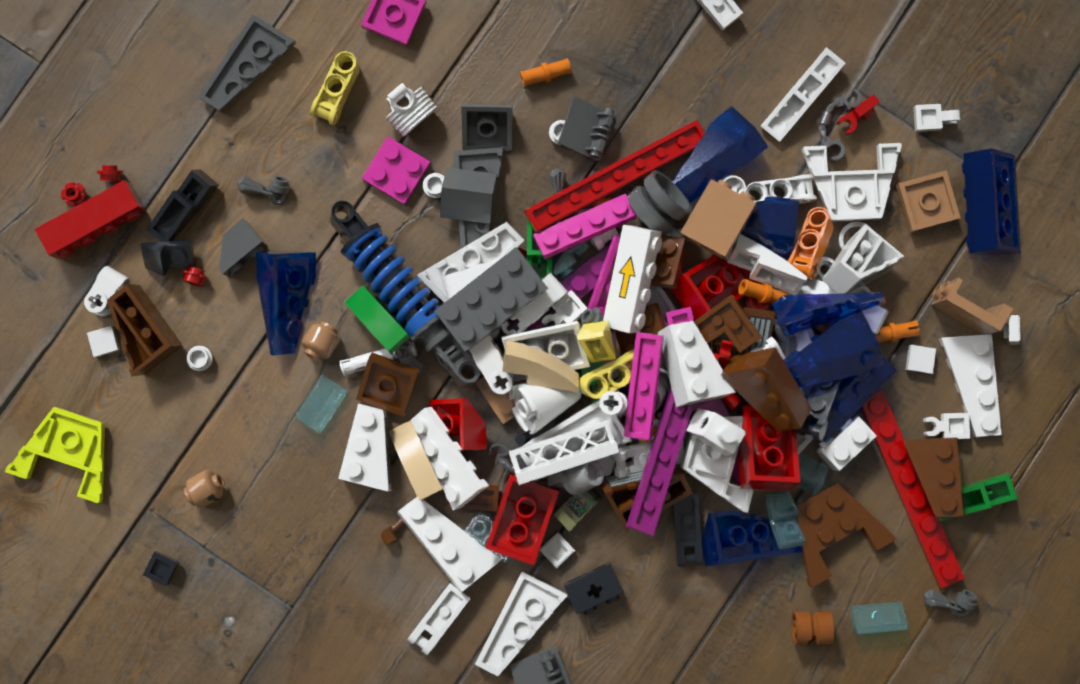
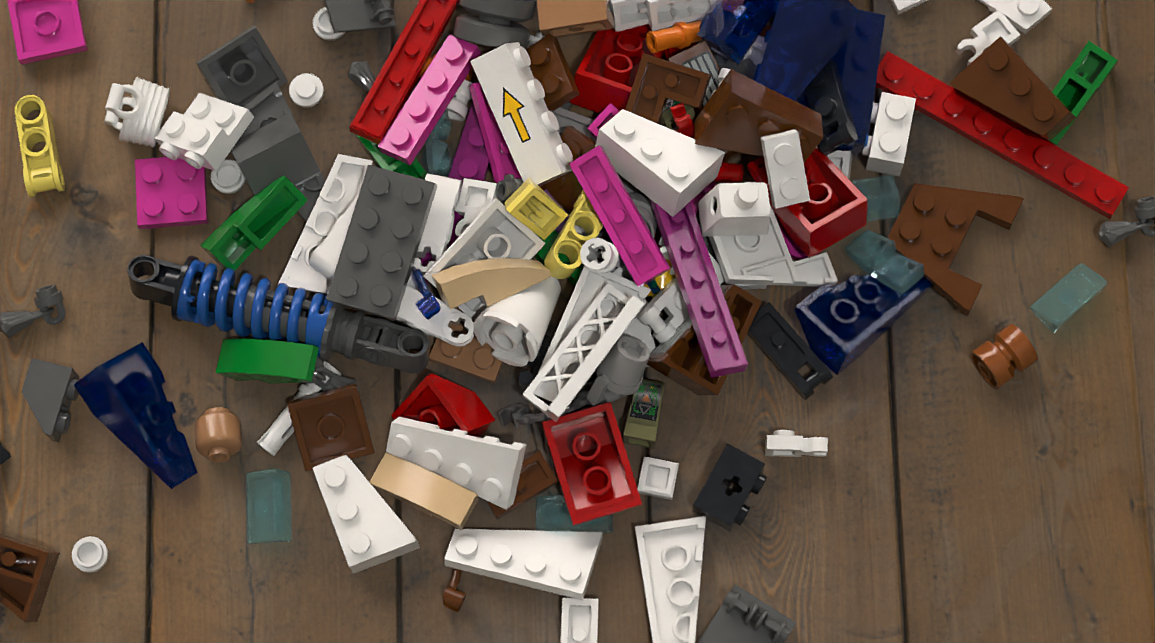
camera: 30 degrees left, 10 degrees down
(195, 277) = (20, 467): red plate -> none
(428, 228) = (254, 223): none -> green slope
(437, 150) = (204, 132): none -> white plate
(492, 358) = (428, 304): none -> clear blue hand
(518, 165) = (306, 90): none -> white plate
(646, 585) = (786, 444): none -> white plate
(763, 431) = (785, 168): none -> white plate

